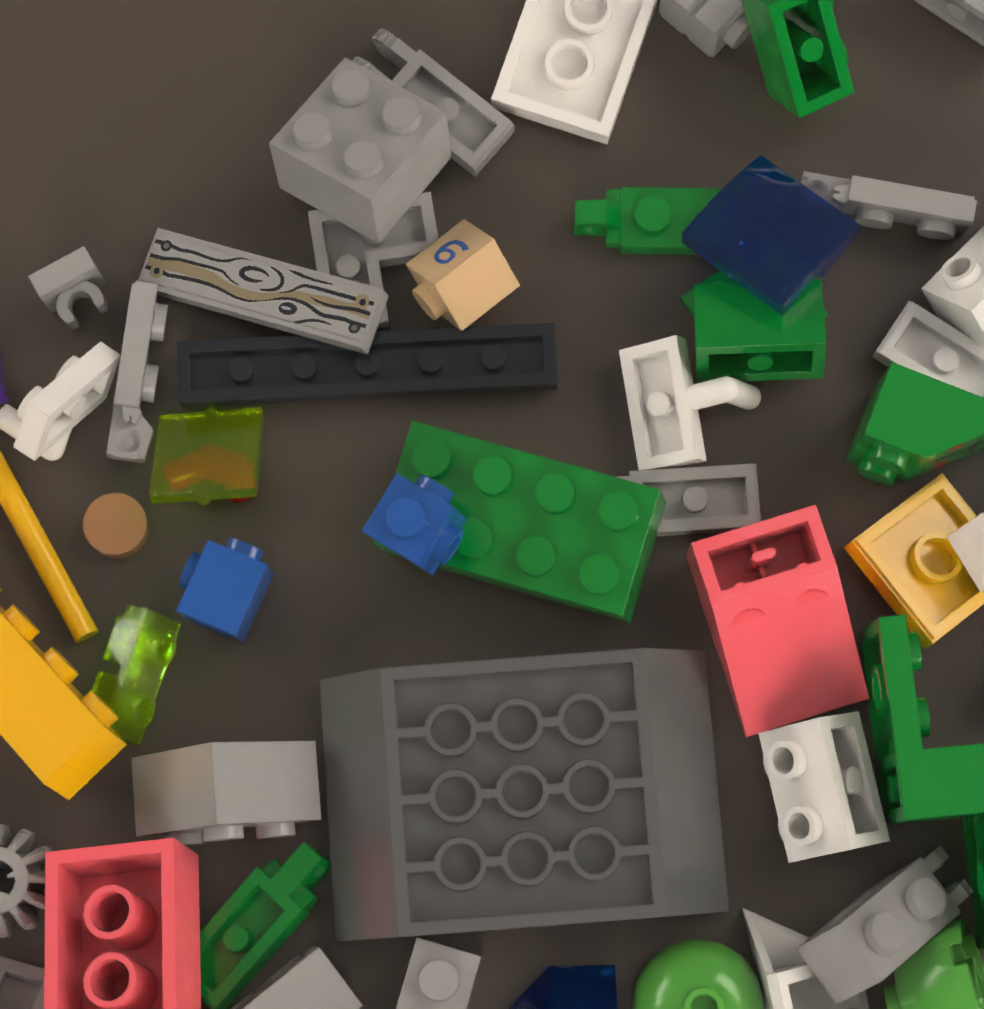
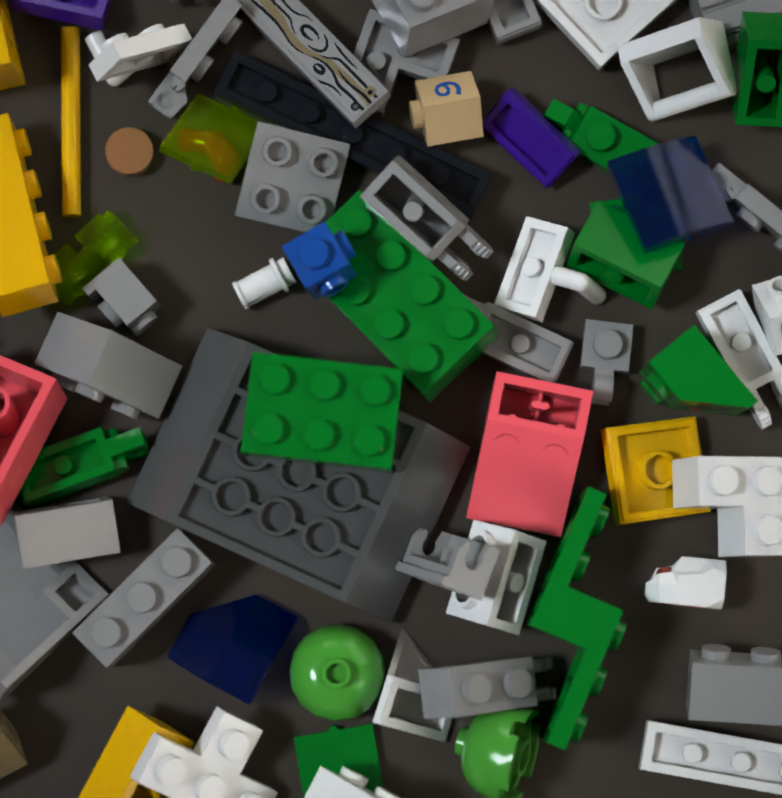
camera: 25 degrees right, 5 degrees up
(202, 698) = (124, 298): none -> light grey brick
(224, 587) = (177, 233): blue brick -> none
(324, 451) = (291, 178): none -> light grey hinge
(358, 591) = (264, 282): none -> white pin
(502, 410) = (423, 215): none -> light grey hinge
(517, 701) = (321, 412): none -> green brick
(573, 259) = (530, 137): none -> dark purple tile
(675, 64) = (701, 34): none -> white tile
(766, 798) = (453, 565): none -> light grey hinge
(798, 456) = (605, 352): none -> light grey plate

